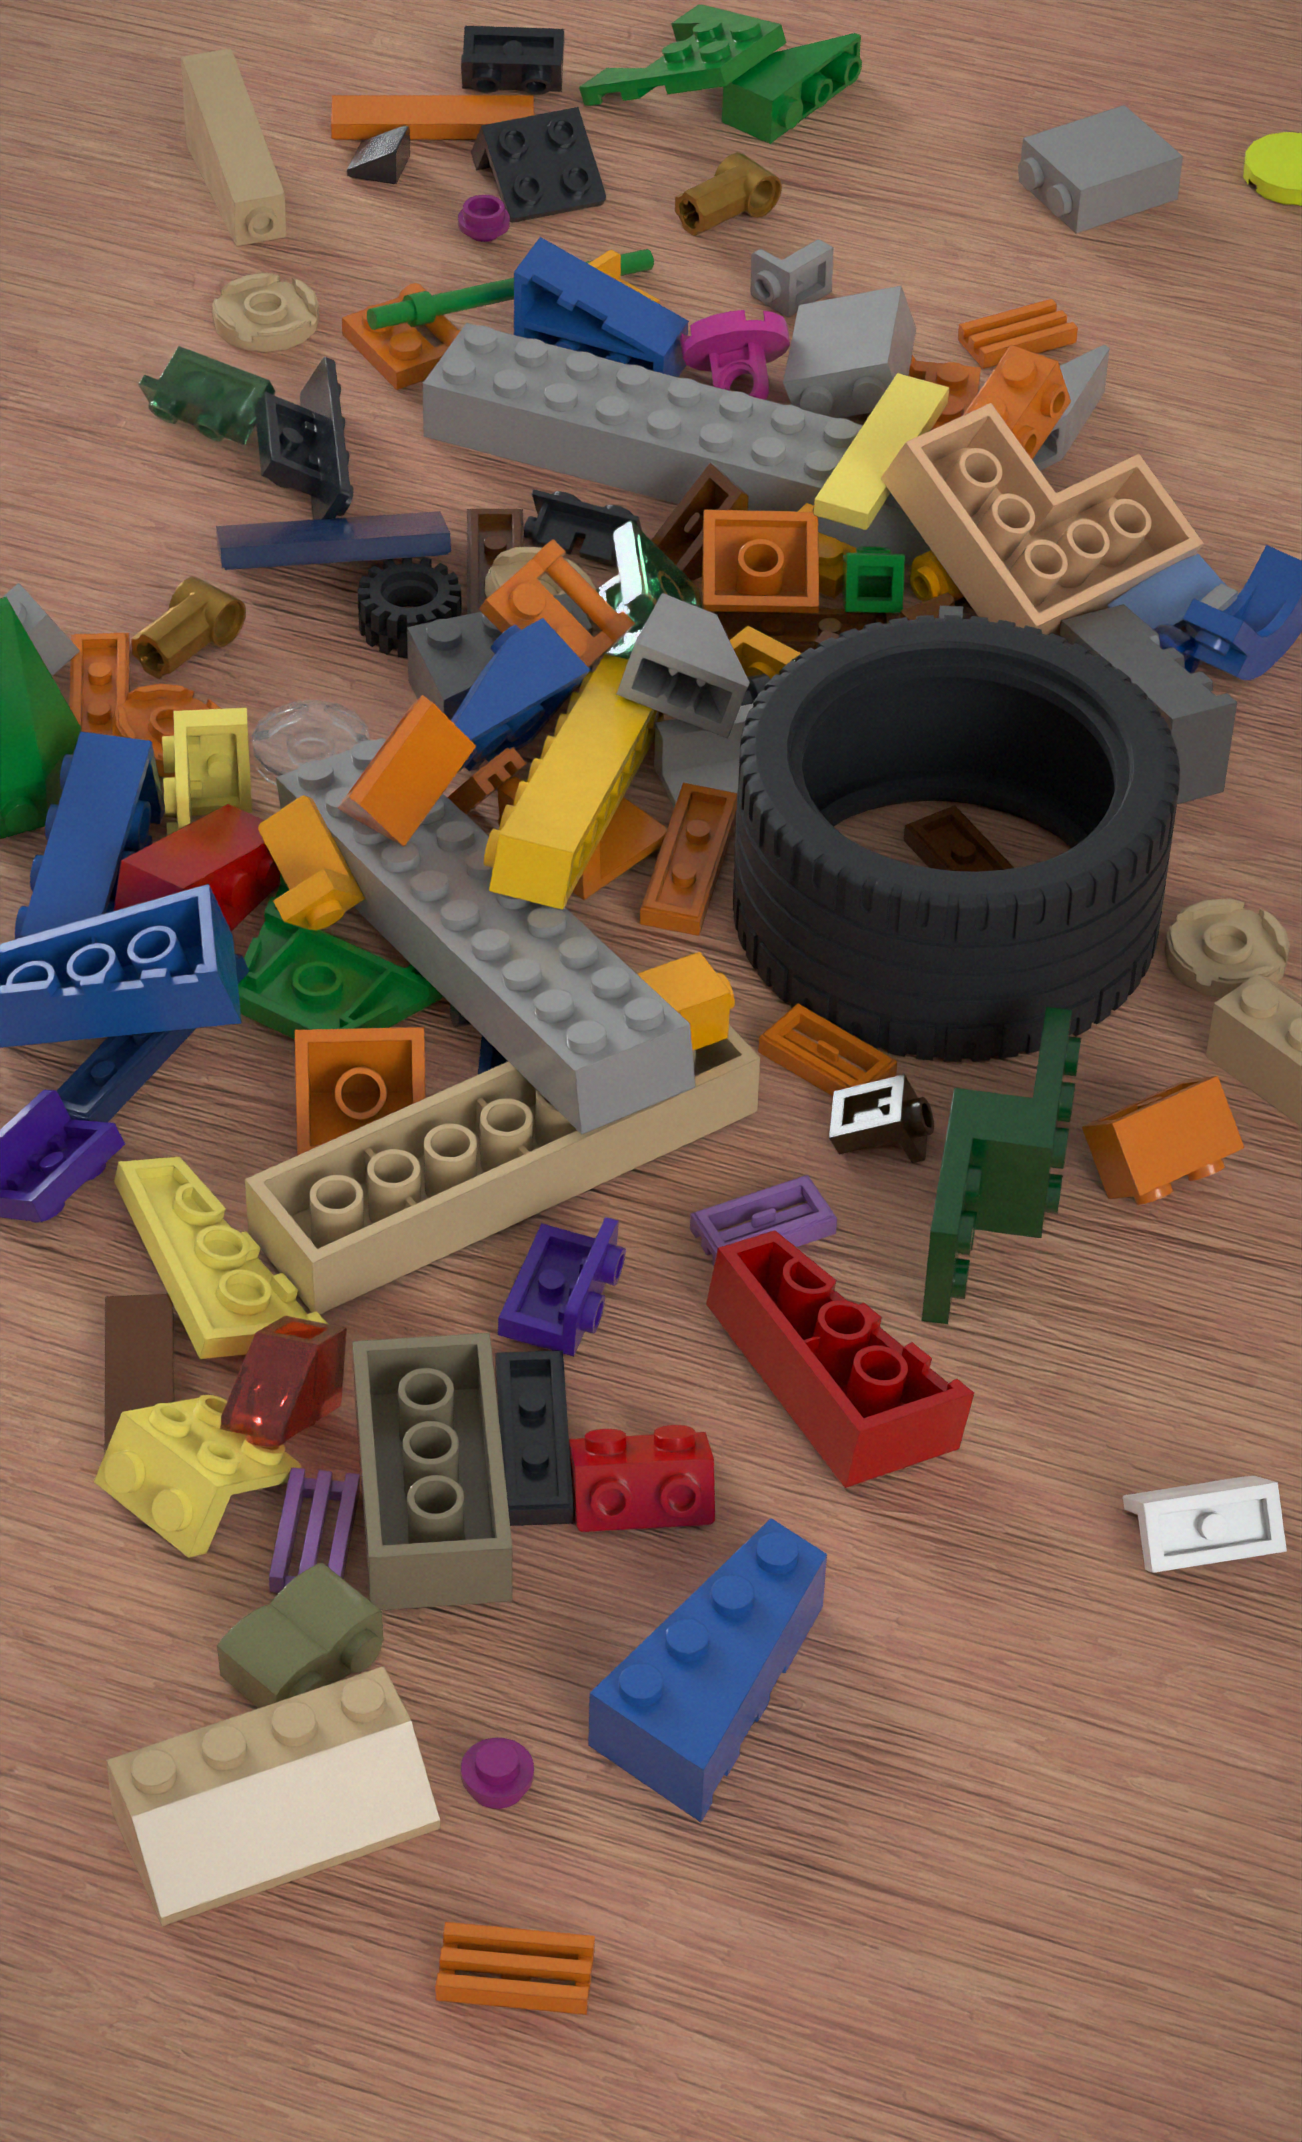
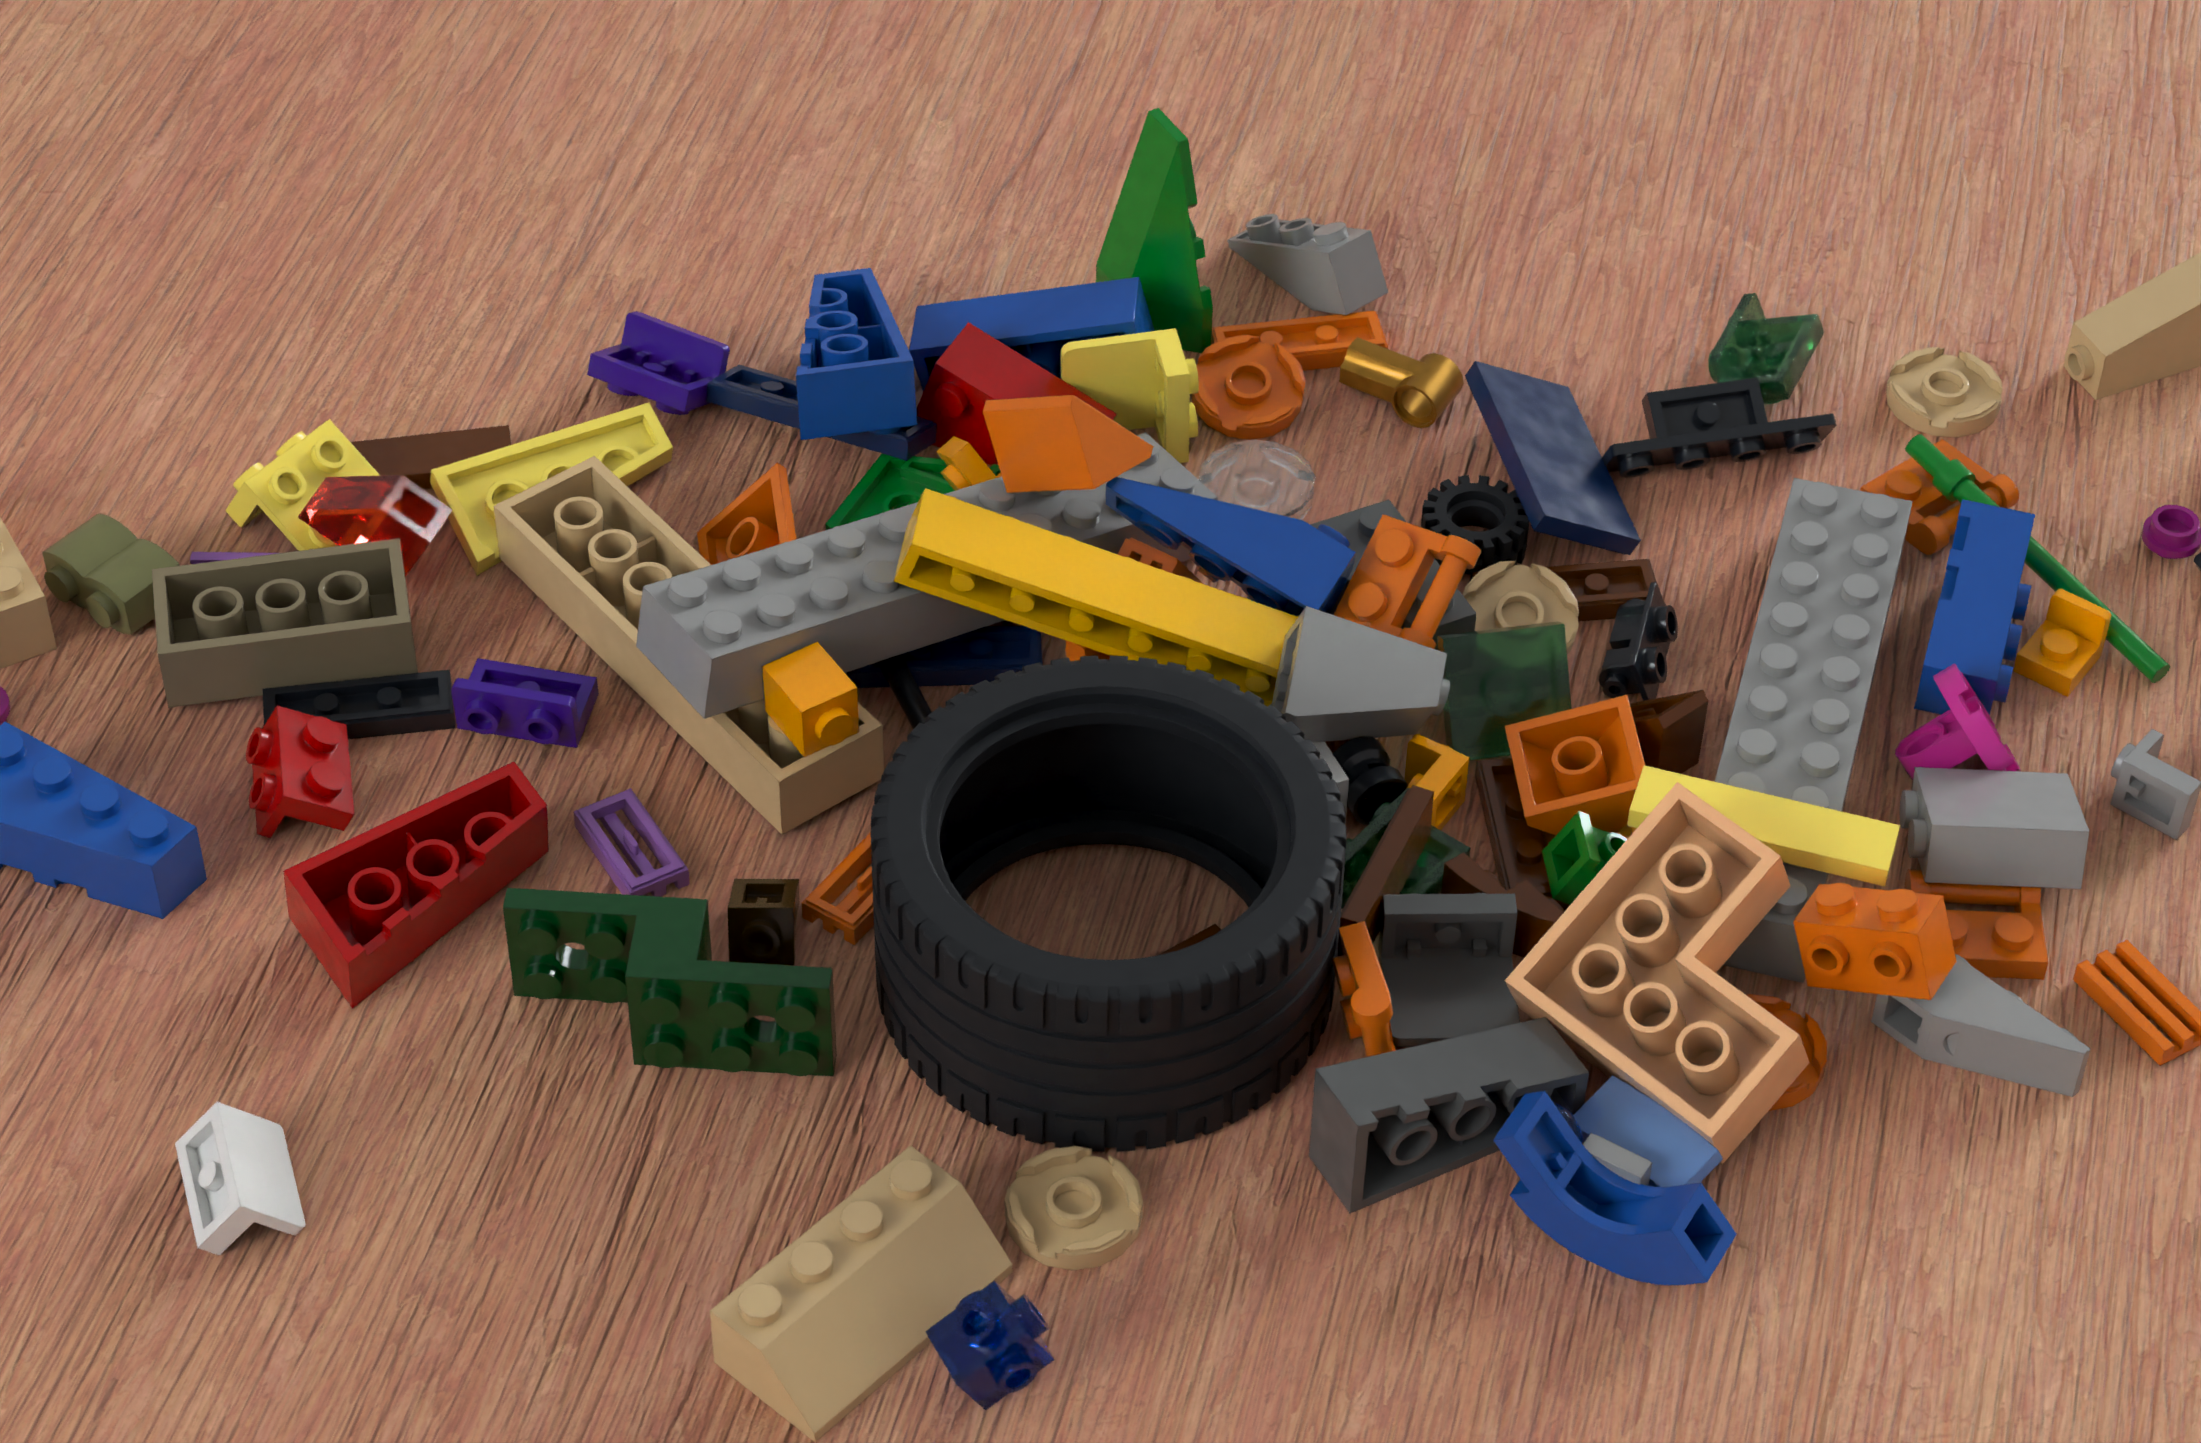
camera: 85 degrees right, 0 degrees up
(1164, 1139) = (731, 1125): orange brick -> none

